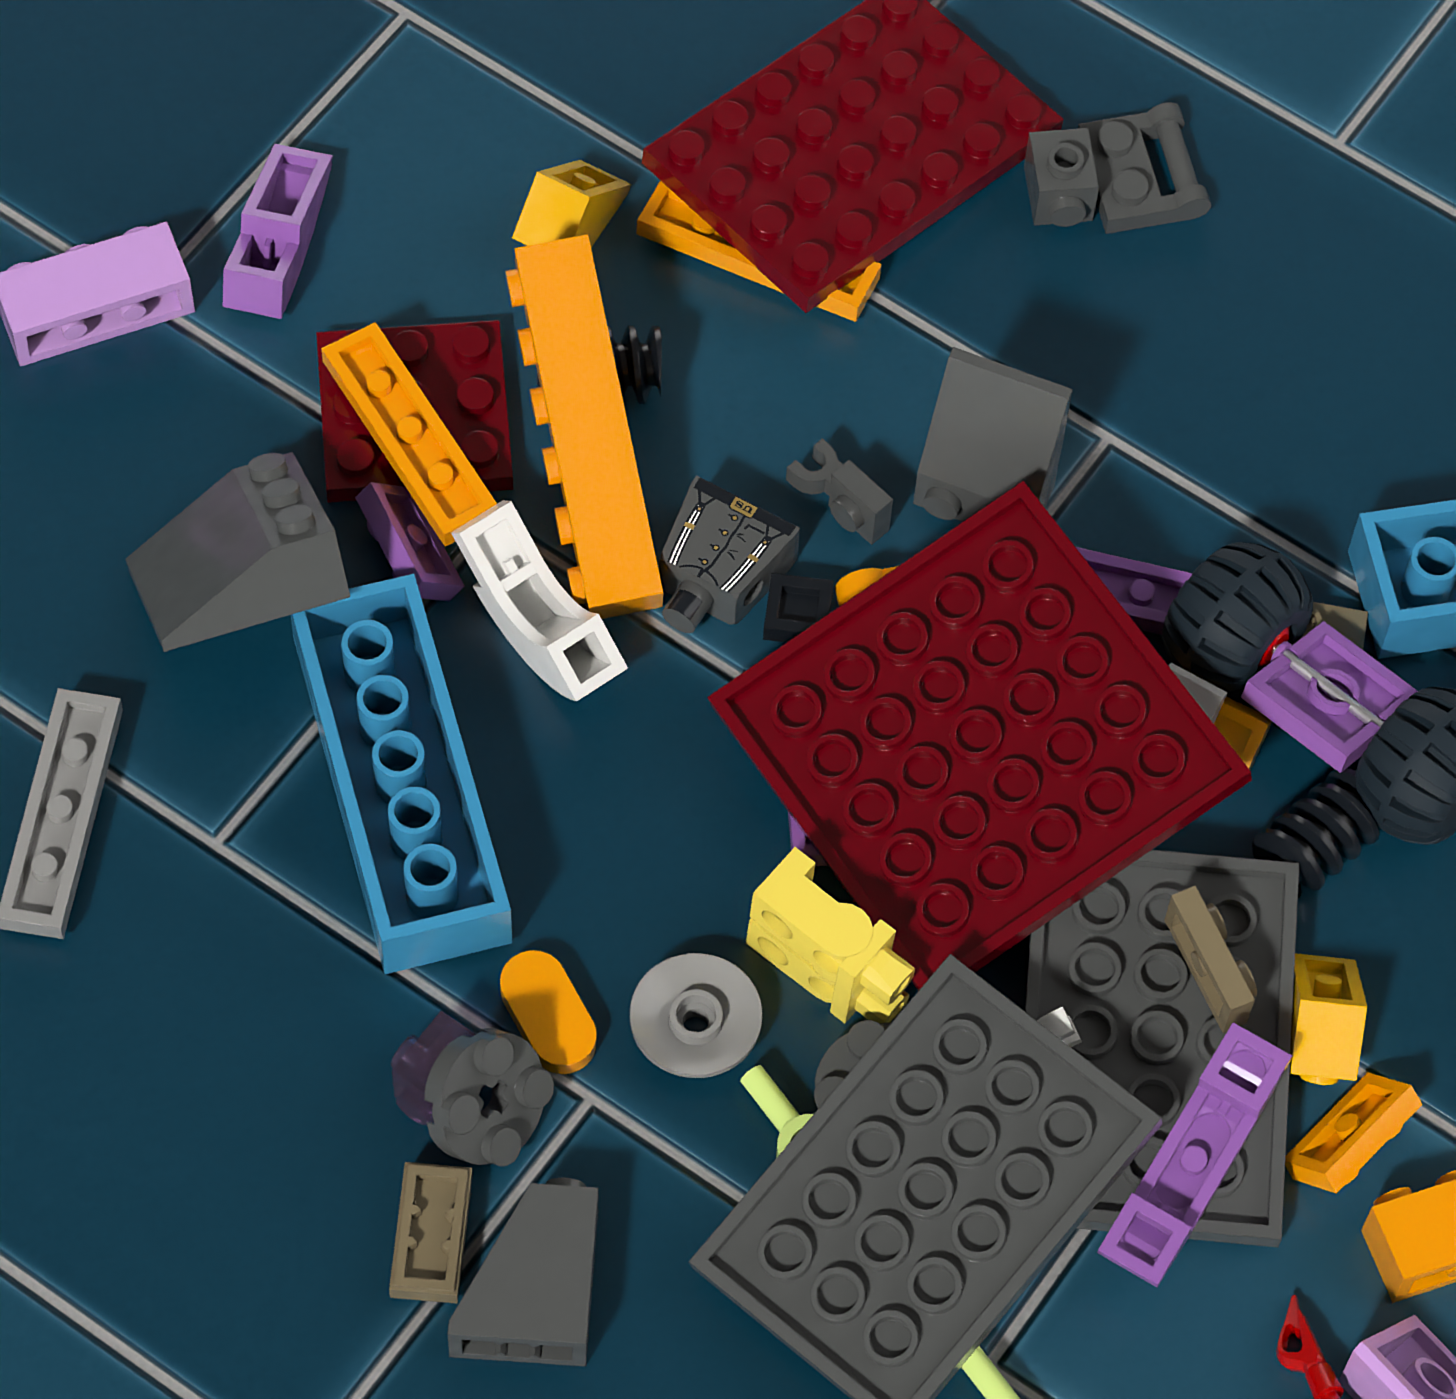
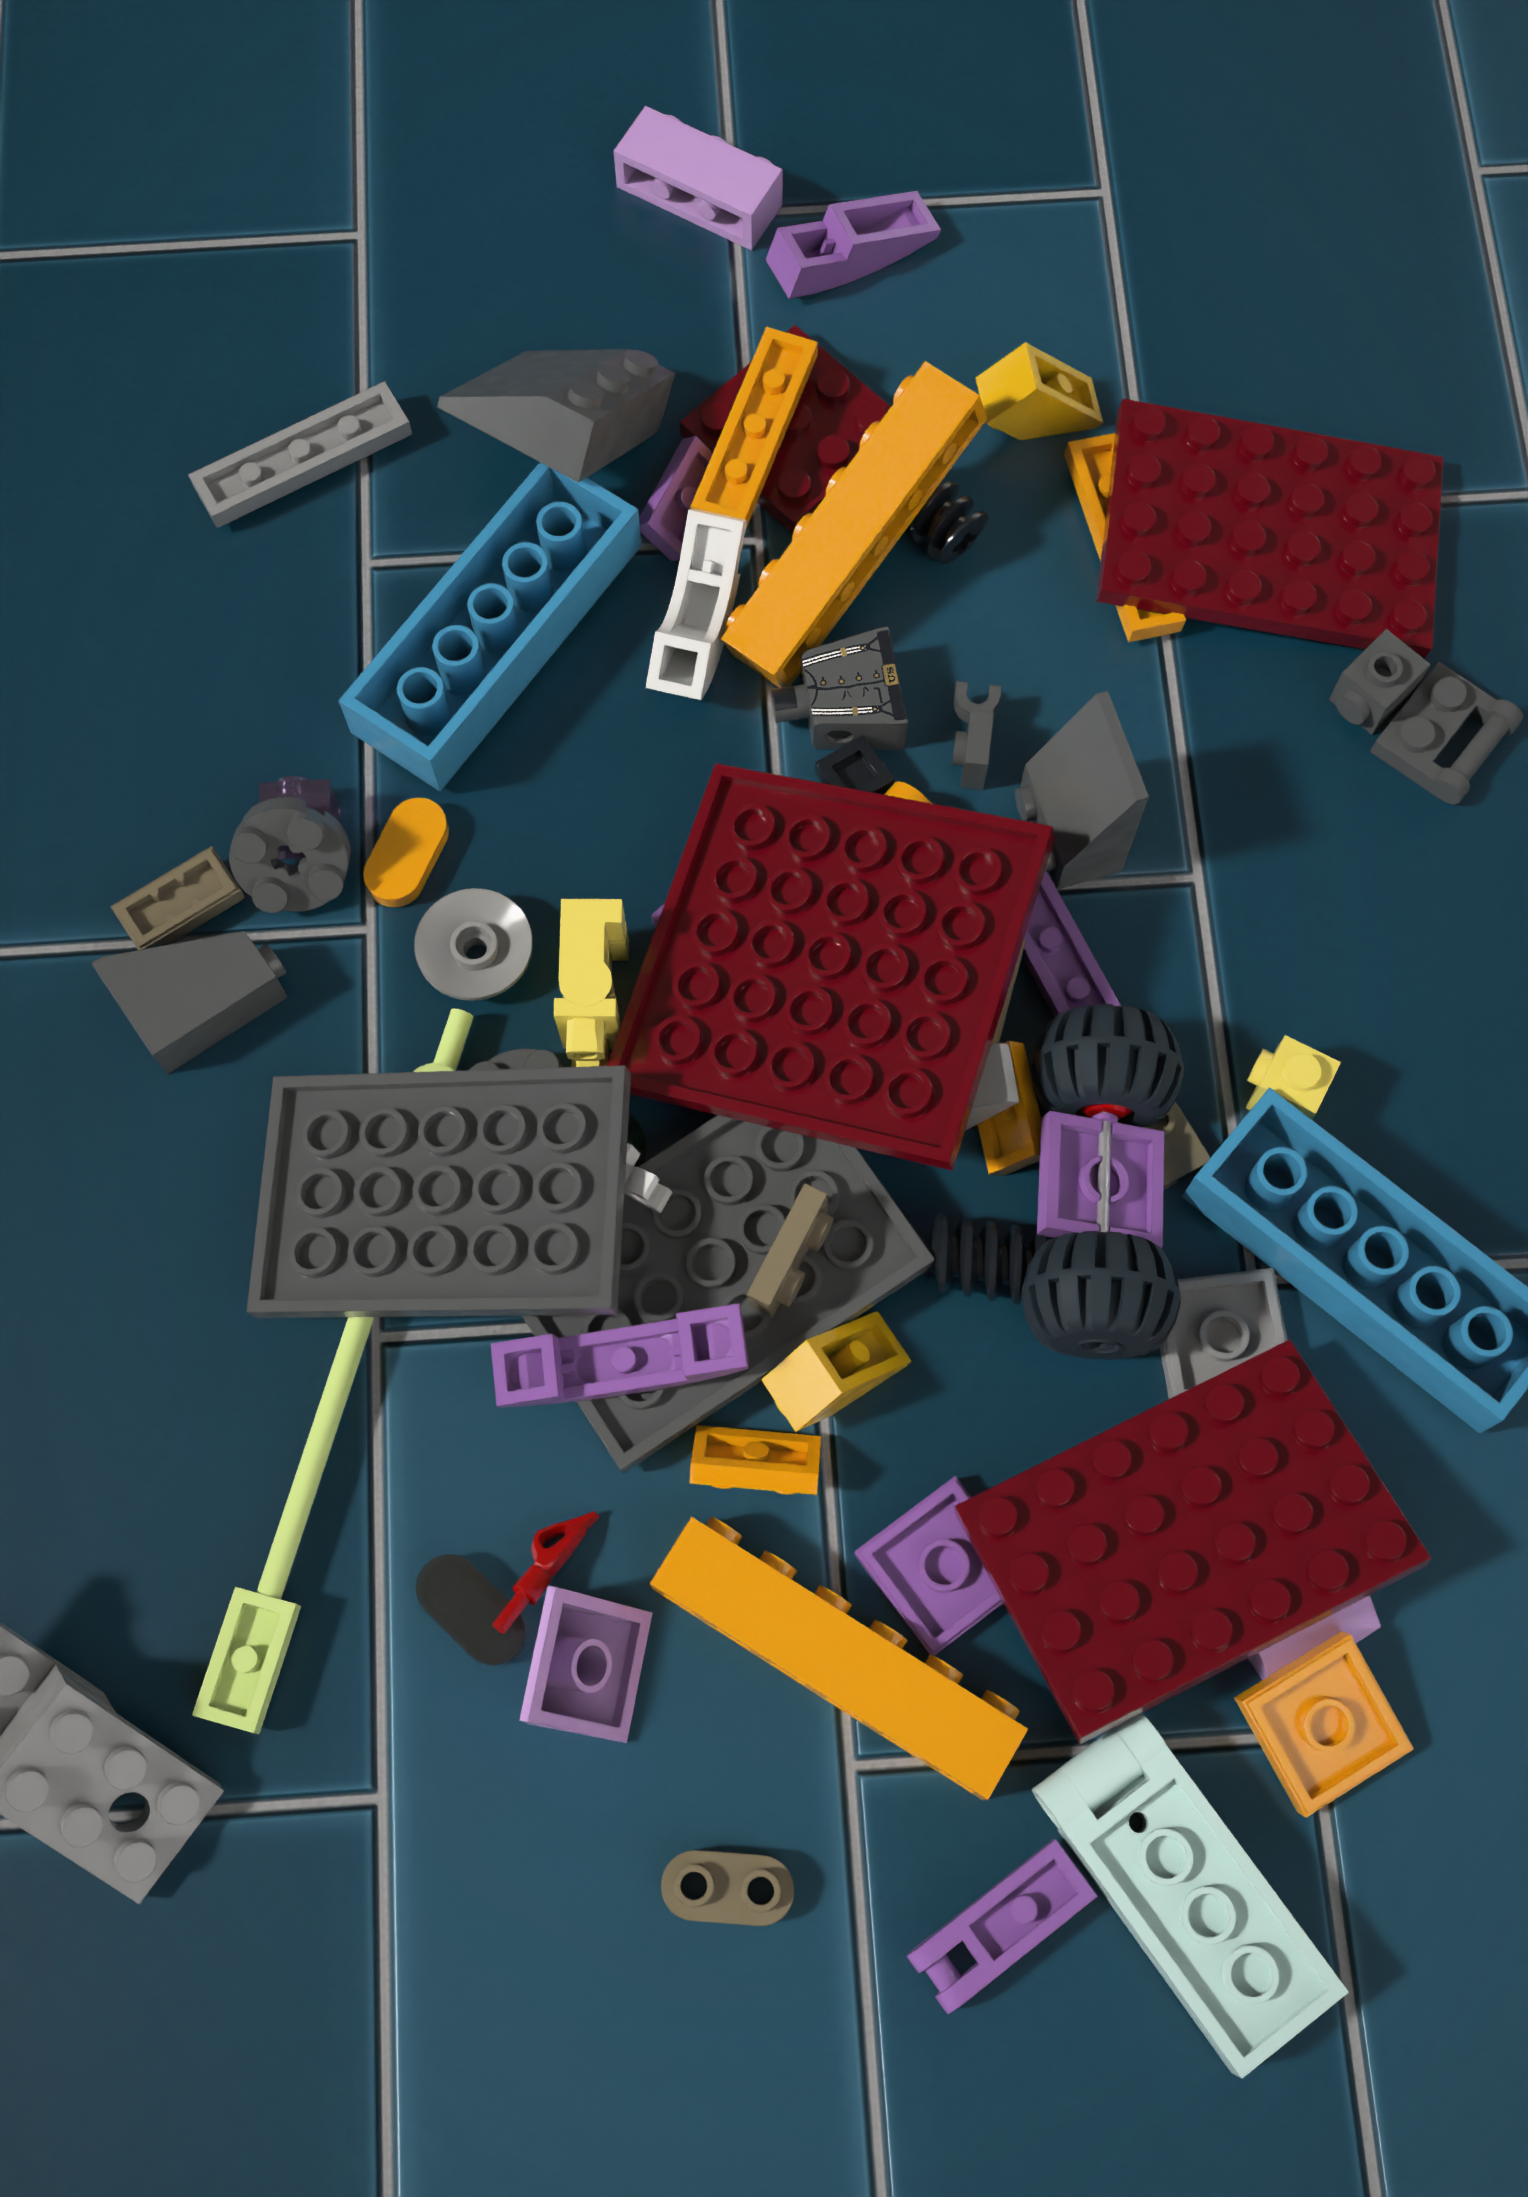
camera: 55 degrees right, 10 degrees up
(1349, 490) = (1295, 1074): none -> light yellow brick

